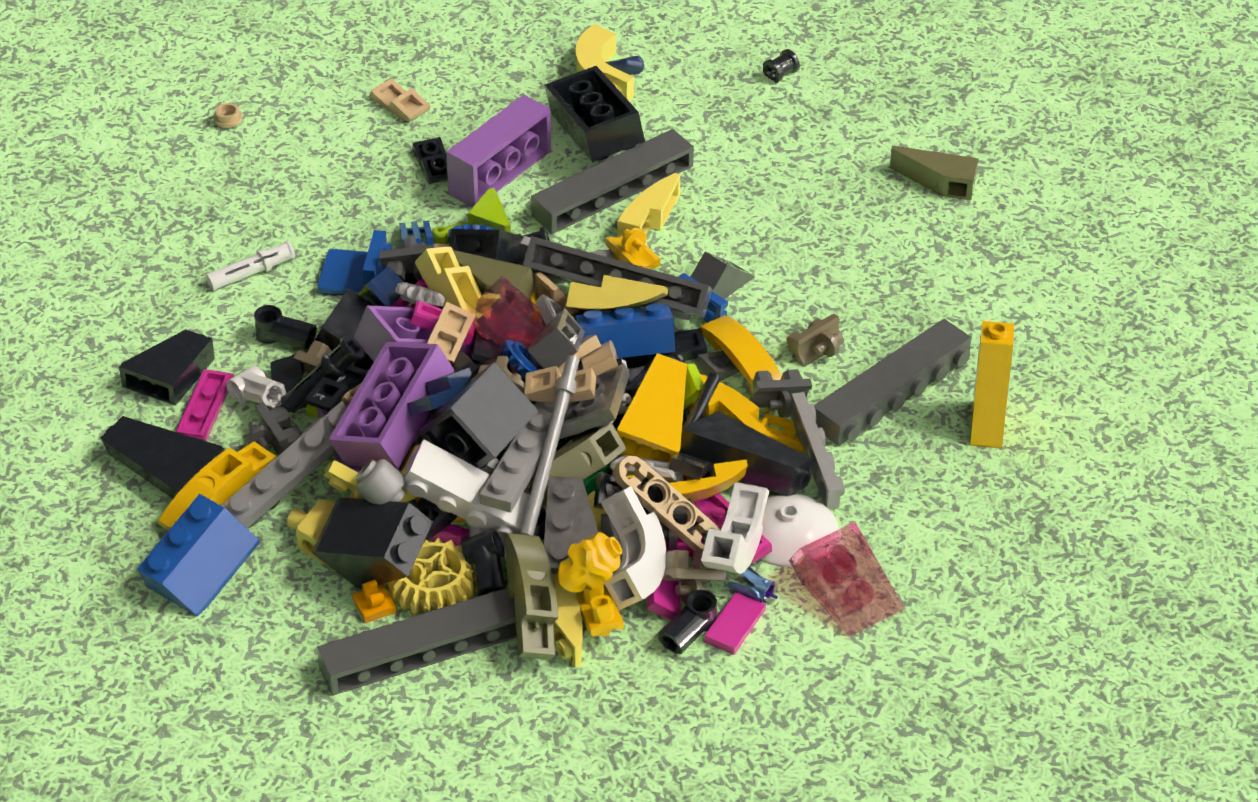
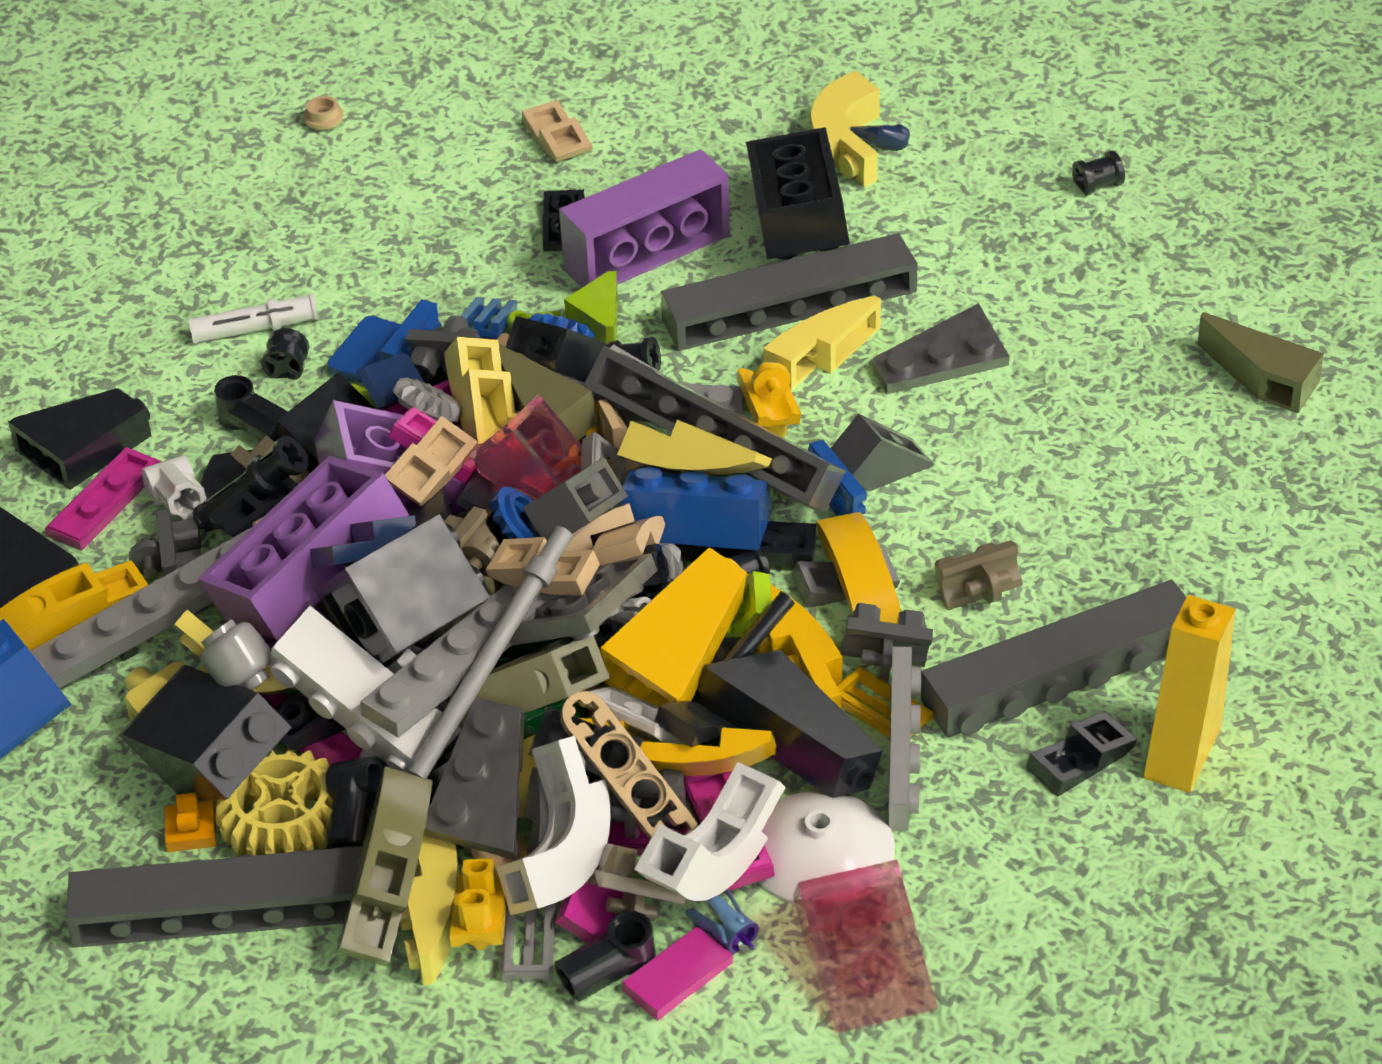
camera: 20 degrees right, 0 degrees up
(286, 285) = (285, 354): none -> black wheel
(590, 563) = (476, 837): yellow head -> none
(637, 643) = (528, 970): none -> light grey tile
(729, 202) = (943, 352): none -> flat silver wing
(927, 438) = (1085, 751): none -> black slope

